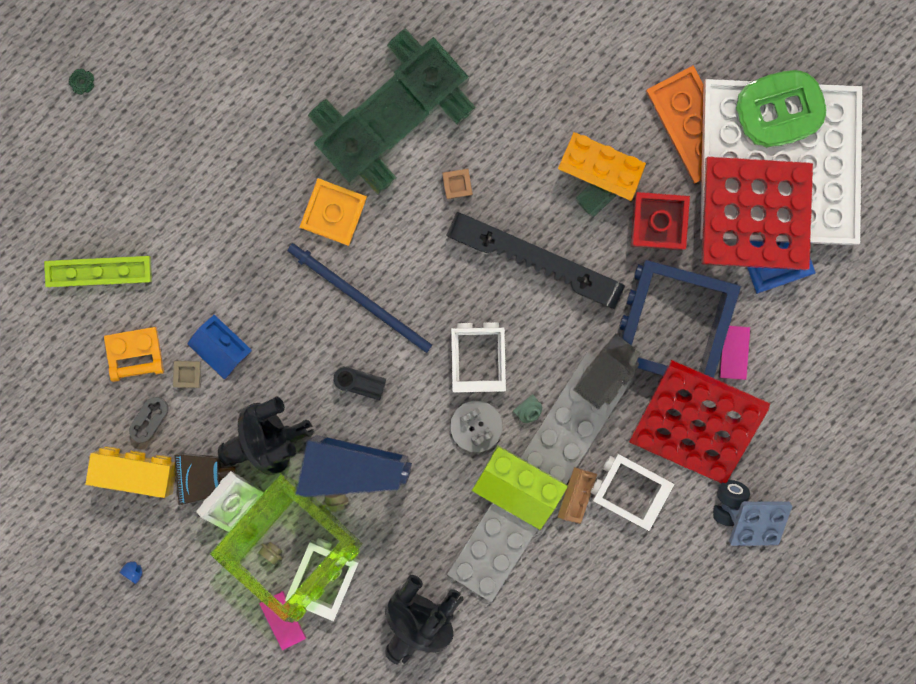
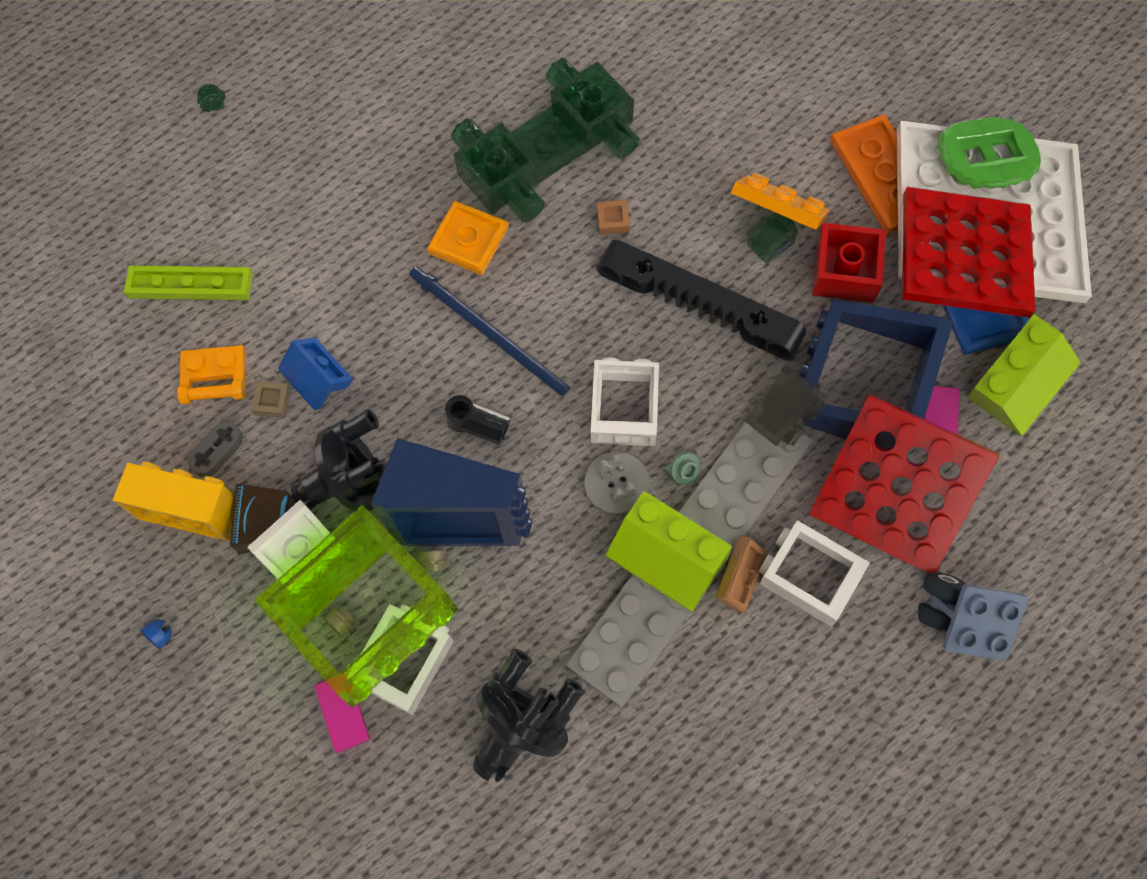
camera: 10 degrees right, 20 degrees down
(802, 316) = (1026, 375): none -> lime slope

